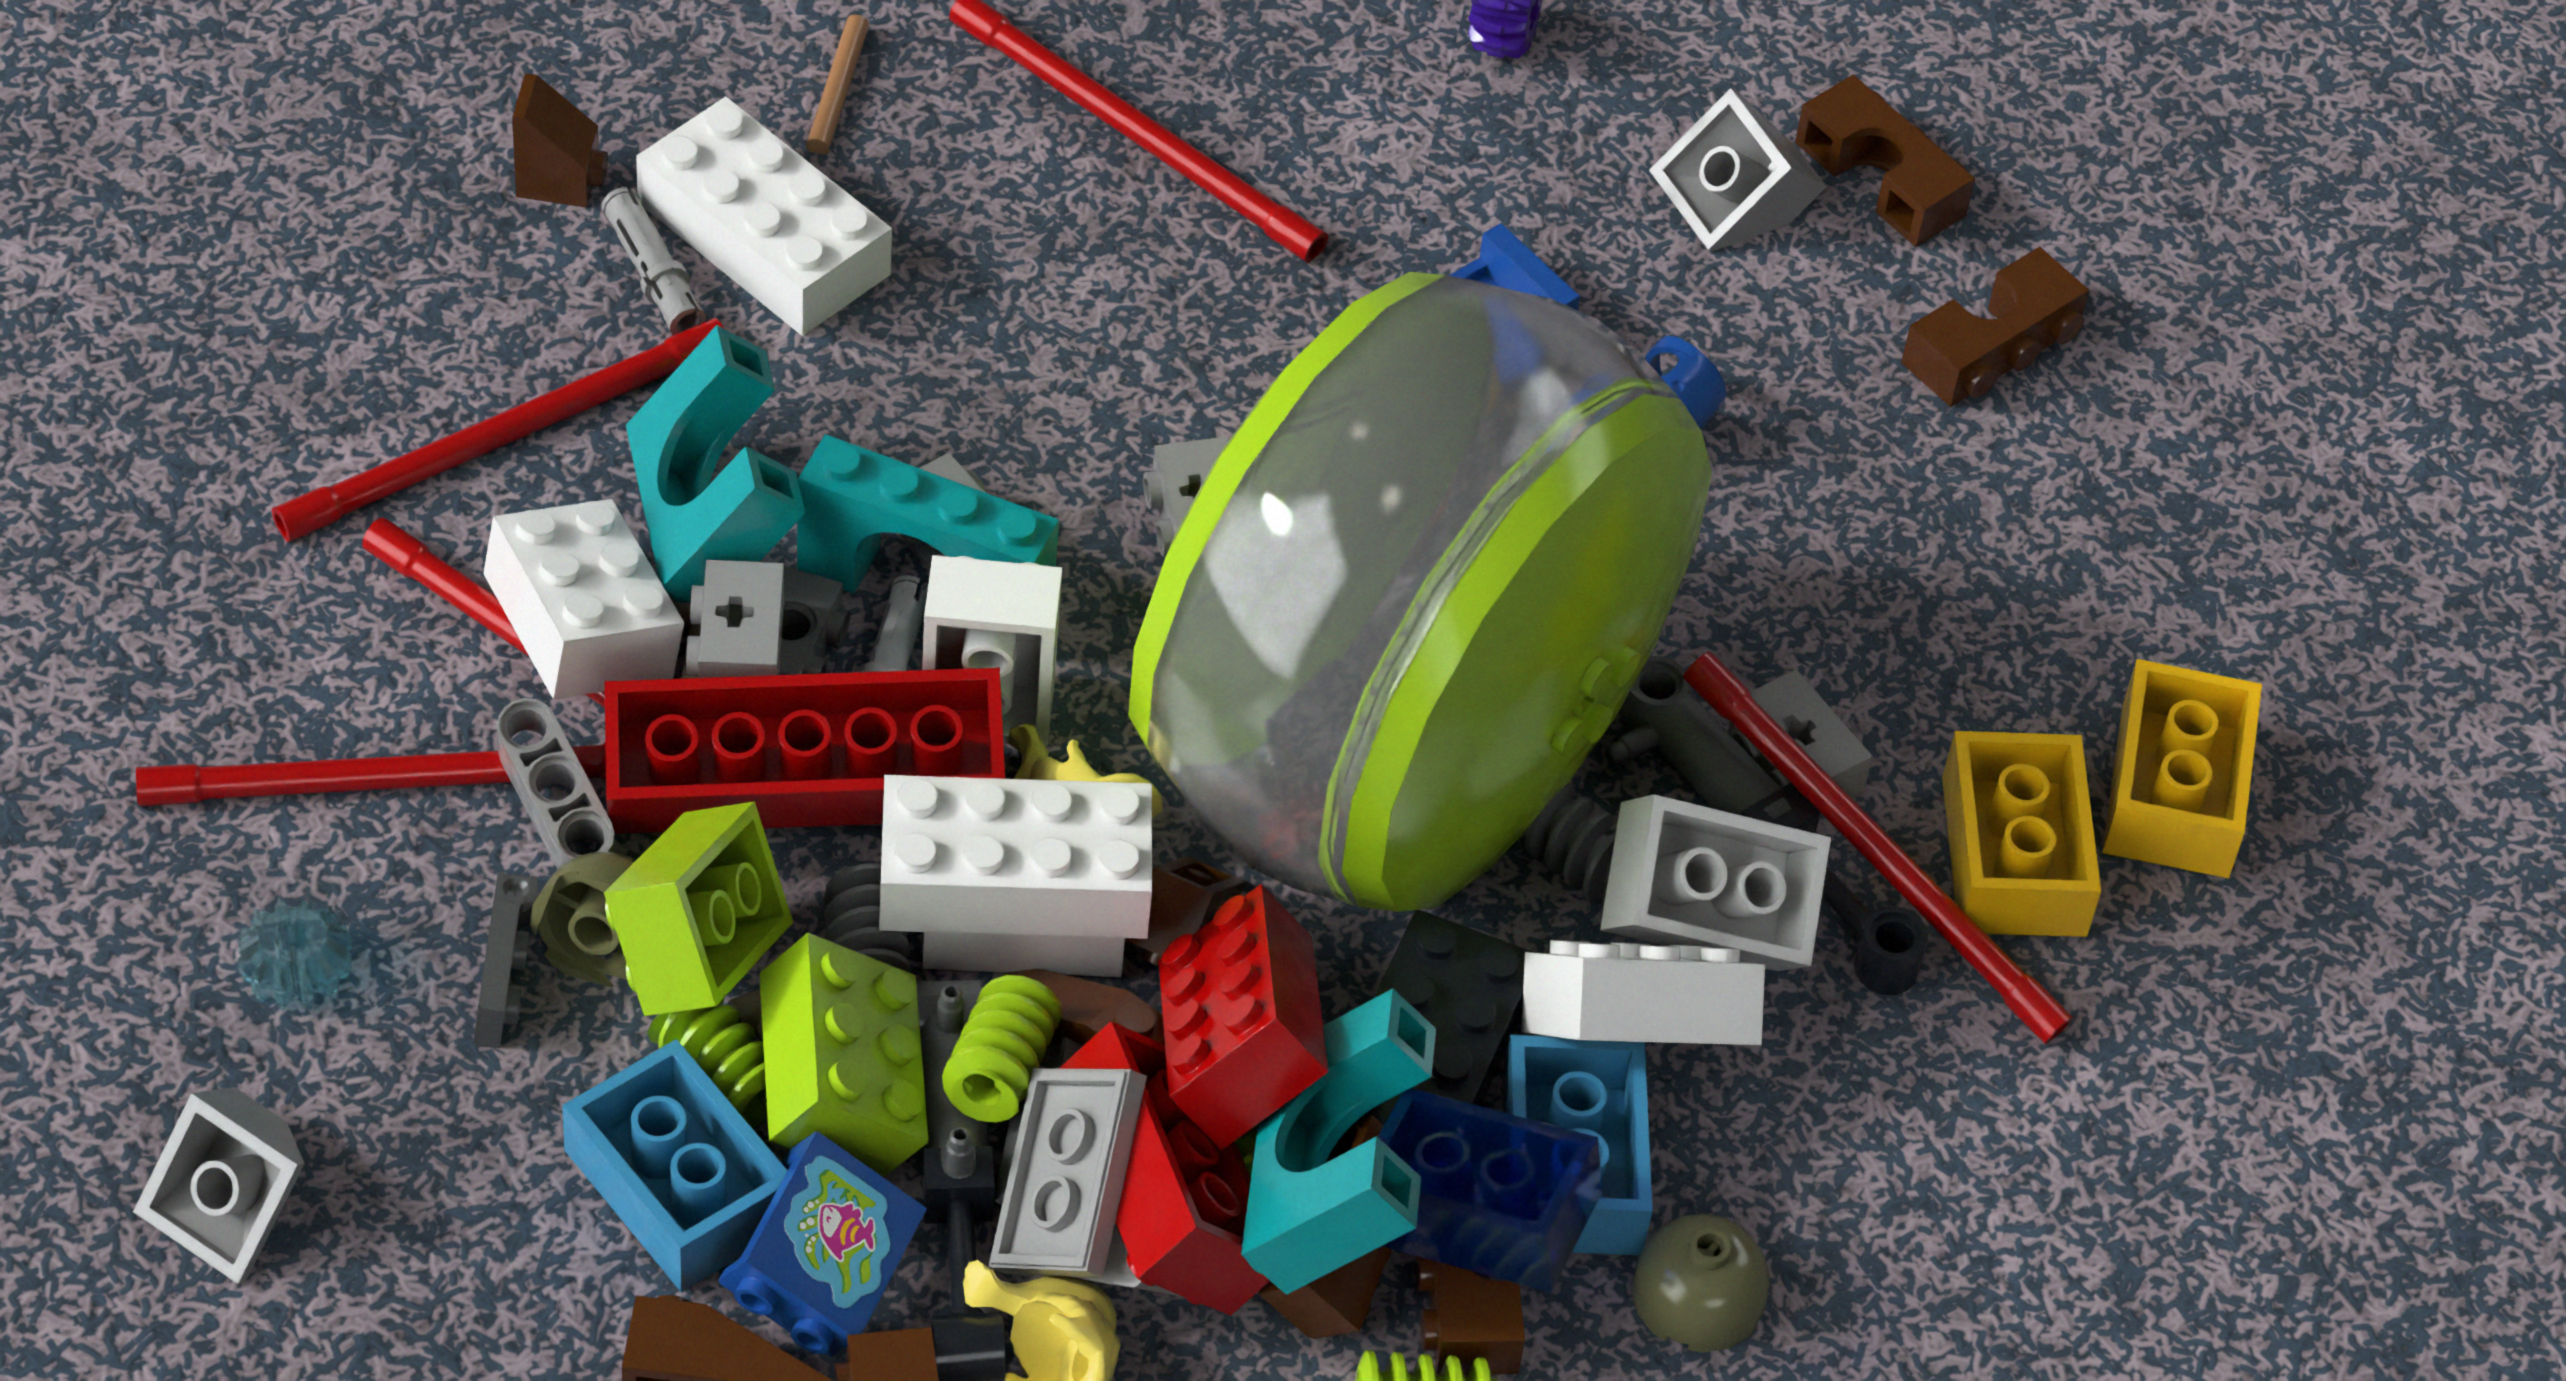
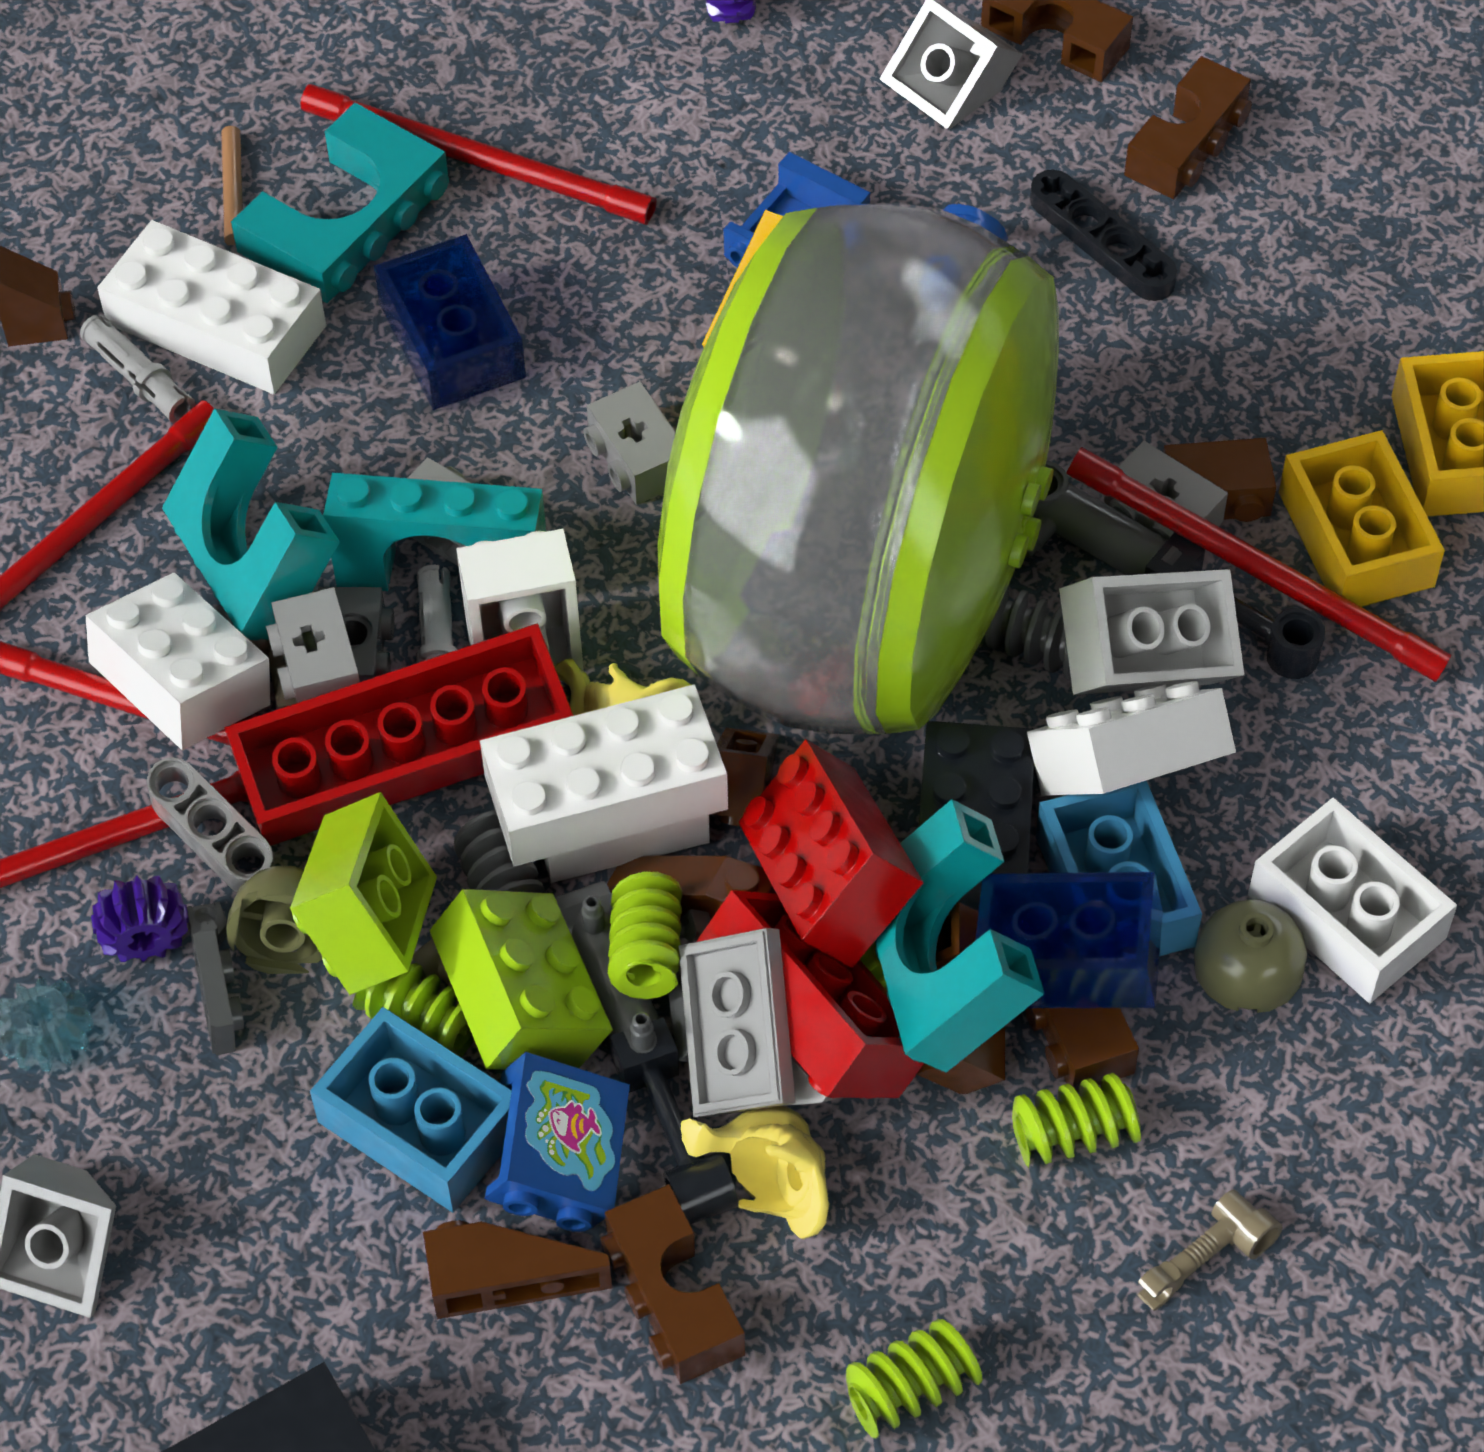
camera: 10 degrees left, 5 degrees up
(440, 868) = (139, 918): none -> dark purple gear
(925, 191) = (333, 251): none -> teal arch
(1031, 308) = (450, 322): none -> clear blue brick
(1842, 1252) = (1353, 899): none -> white brick
(1854, 421) = (1108, 231): none -> black beam
(1895, 732) = (1238, 468): none -> reddish brown slope

